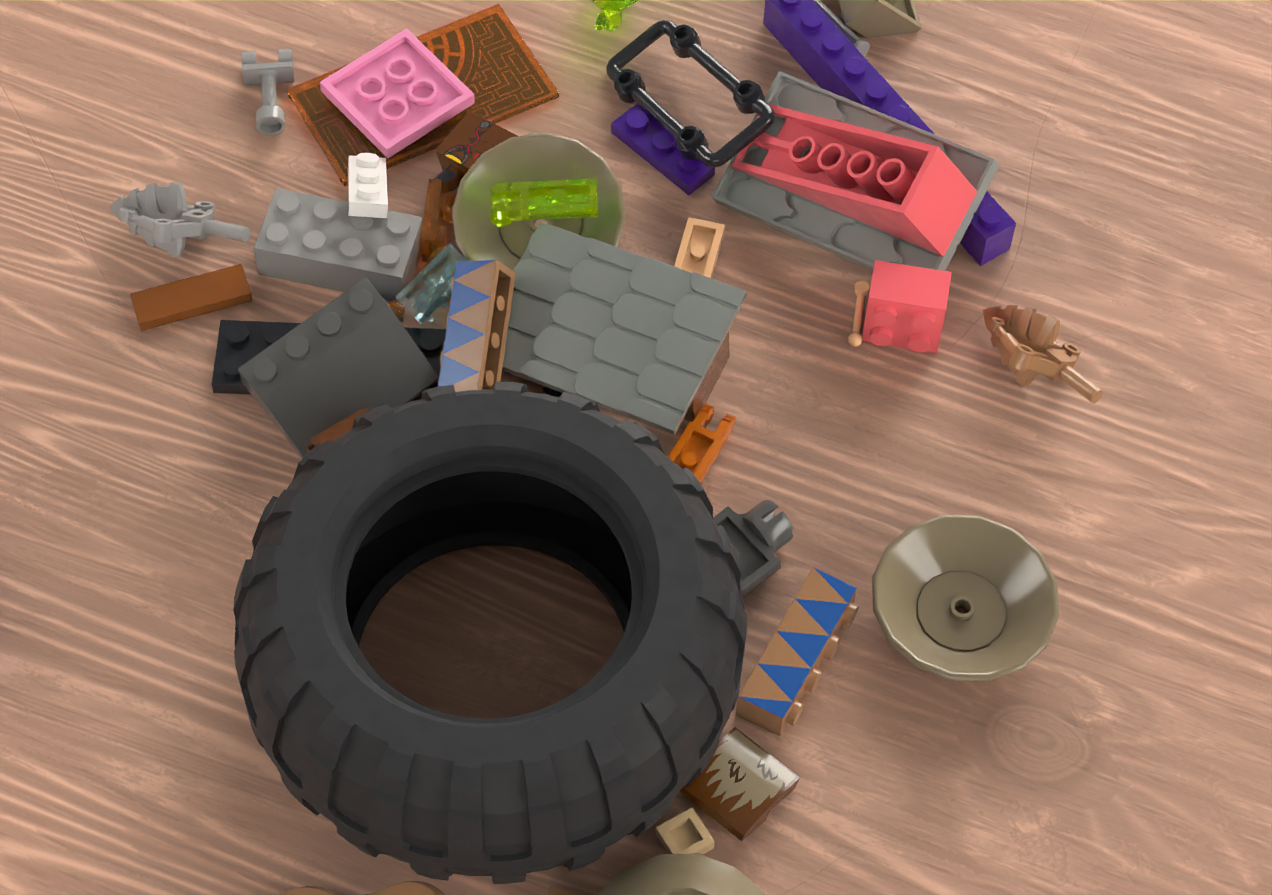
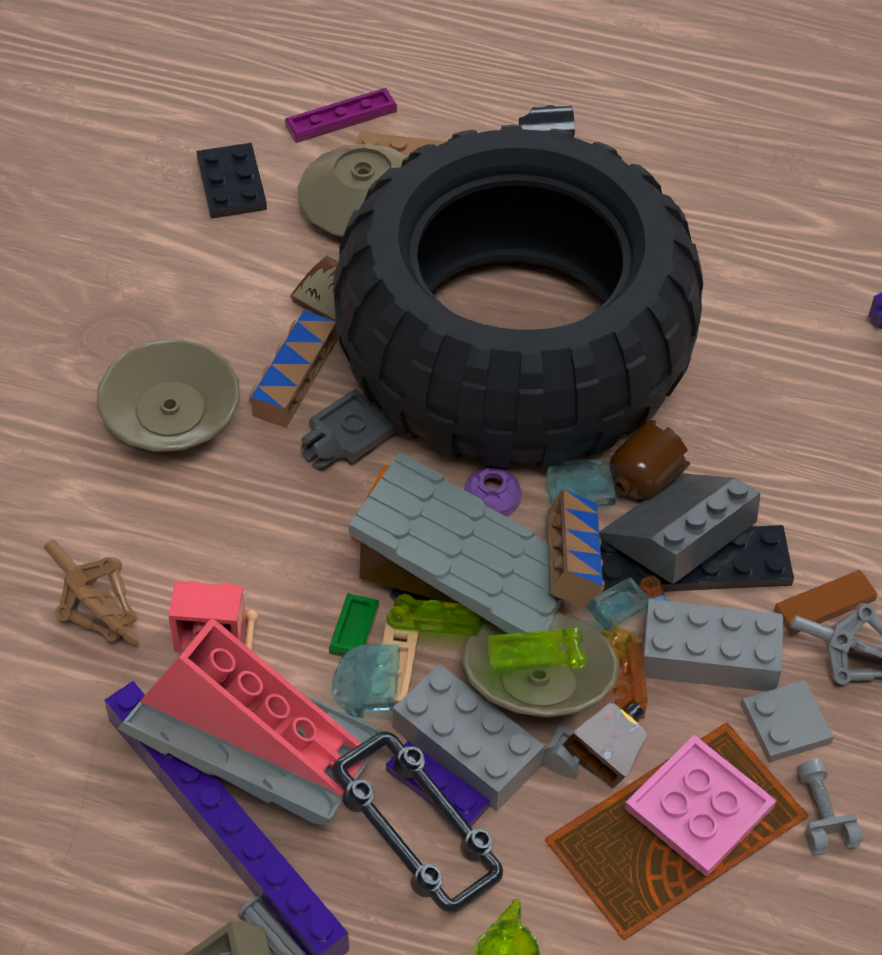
camera: 175 degrees right, 5 degrees down
(272, 167) = (787, 721): none -> light grey plate
(367, 186) = (701, 683): white plate -> none
(654, 187) = (468, 736): none -> light grey brick
(729, 241) = (367, 679): none -> clear light blue slope
(746, 318) = (353, 624): none -> green tile

